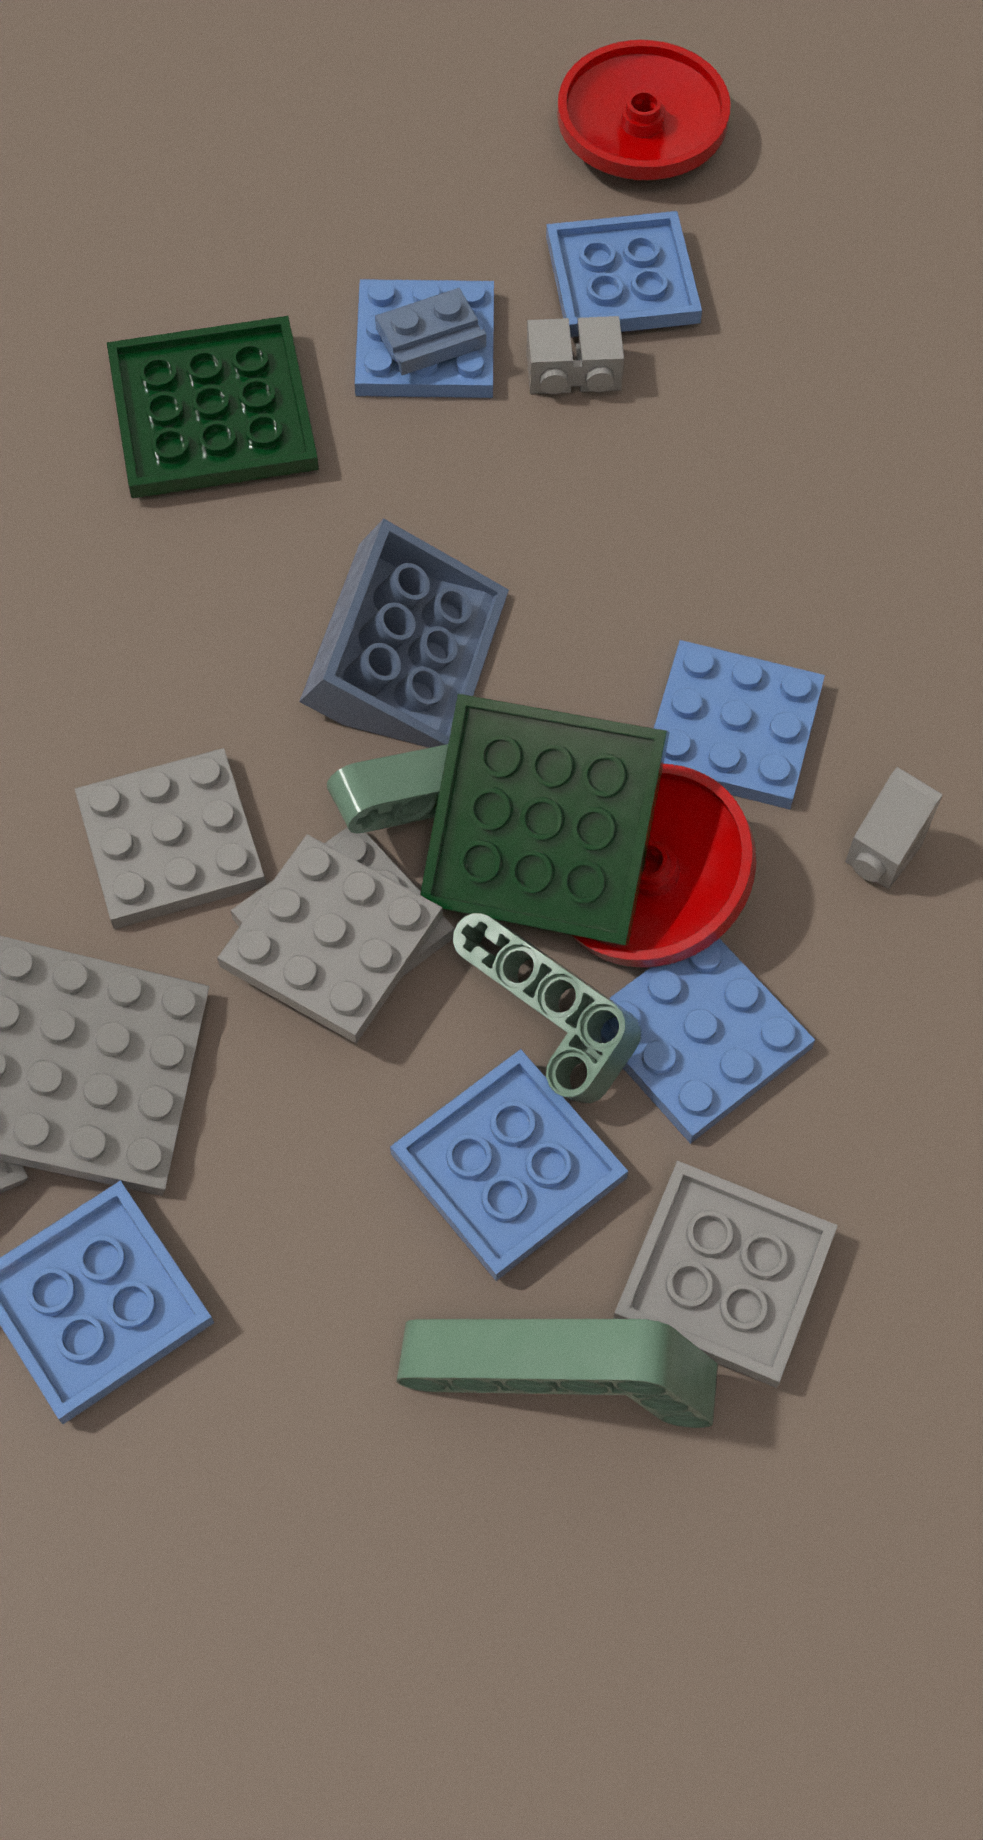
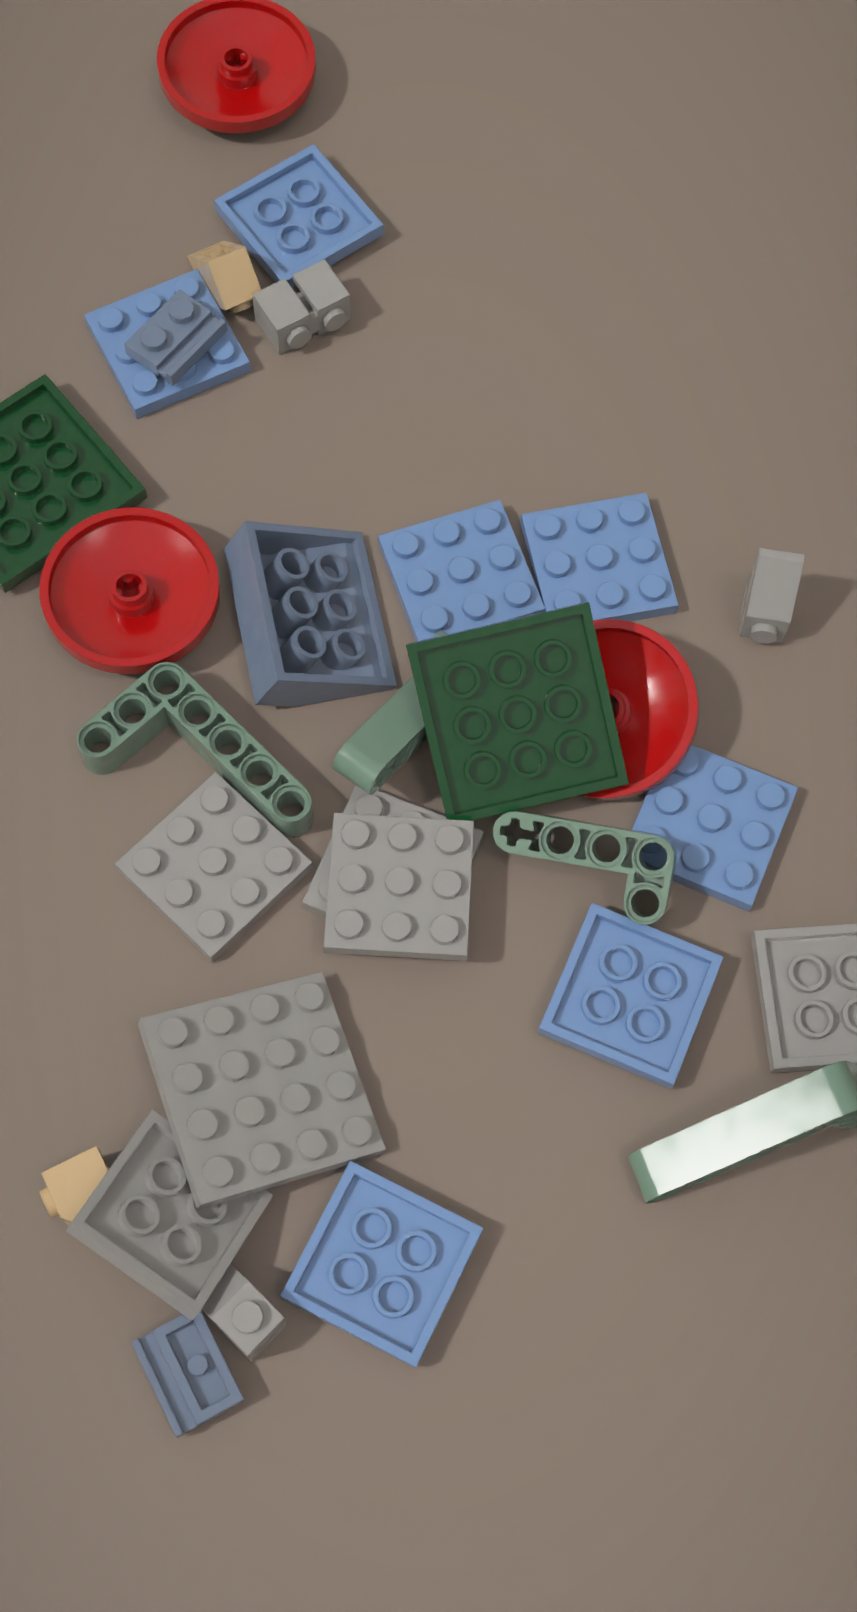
camera: 30 degrees left, 5 degrees up
(202, 668) = (205, 738): none -> sand green beam
(243, 542) = (129, 590): none -> red dish
(516, 298) = (227, 274): none -> tan slope
(586, 661) = (460, 571): none -> medium blue plate

